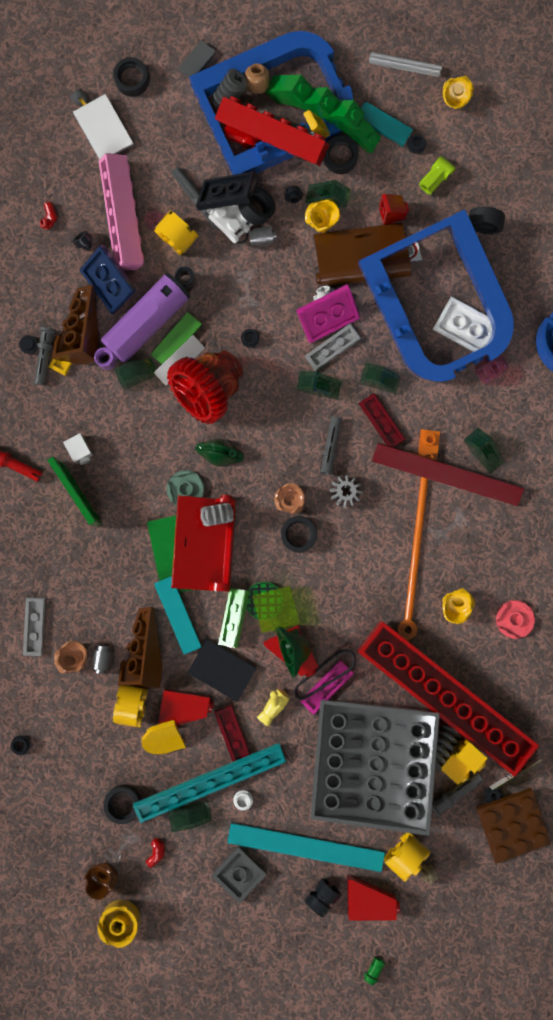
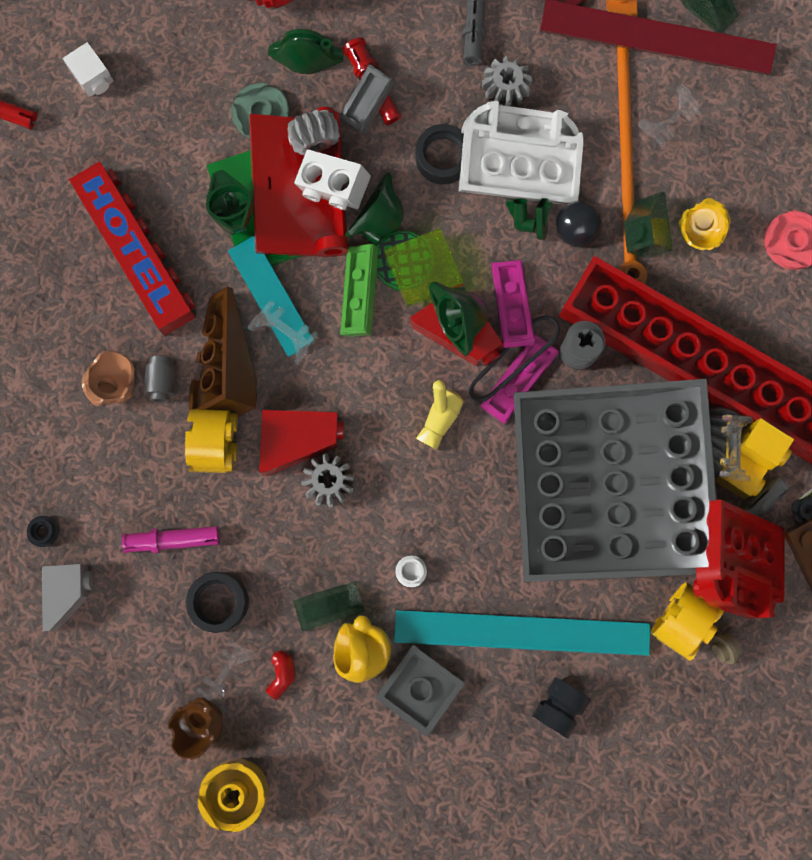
camera: 15 degrees left, 5 degrees down
(30, 784) = (63, 593): none -> light grey slope
(34, 626) = (47, 345): light grey tile -> none
(75, 492) = (88, 127): green tile -> none
(94, 572) = (132, 248): none -> red brick
(98, 761) = (170, 539): none -> dark pink pin
(157, 556) = (229, 203): none -> dark green hat
(163, 738) = (270, 487): yellow tile -> none
(172, 631) = (267, 319): none -> clear piece
(194, 742) = (320, 488): none -> light grey gear
(206, 847) = (361, 650): none -> yellow piece
(209, 783) = (352, 548): teal tile -> none
(222, 670) = (351, 374): black tile -> none
(226, 545) = (334, 175): none -> white brick
(232, 733) = (381, 472): dark red tile -> none
(253, 573) = (381, 213): none -> dark green hat
(254, 492) = (367, 99): none -> dark grey tile
(256, 470) = (360, 59): none -> red pin
(290, 498) = (423, 99): nougat hair -> none
(329, 639) = (512, 304): none -> dark pink tile
(341, 578) = (518, 210): none -> dark green piece
(347, 543) = (521, 154): none -> white plate
(365, 683) = (590, 337): none -> dark grey piece
(370, 902) = (637, 706): red slope -> none
(374, 971) = (662, 819): green pin -> none
(379, 591) = (579, 223): none -> black hair
(422, 600) = (648, 227): none -> clear green slope
(444, 829) = (743, 563): none -> red plate
(448, 765) = (733, 447): none -> clear piece

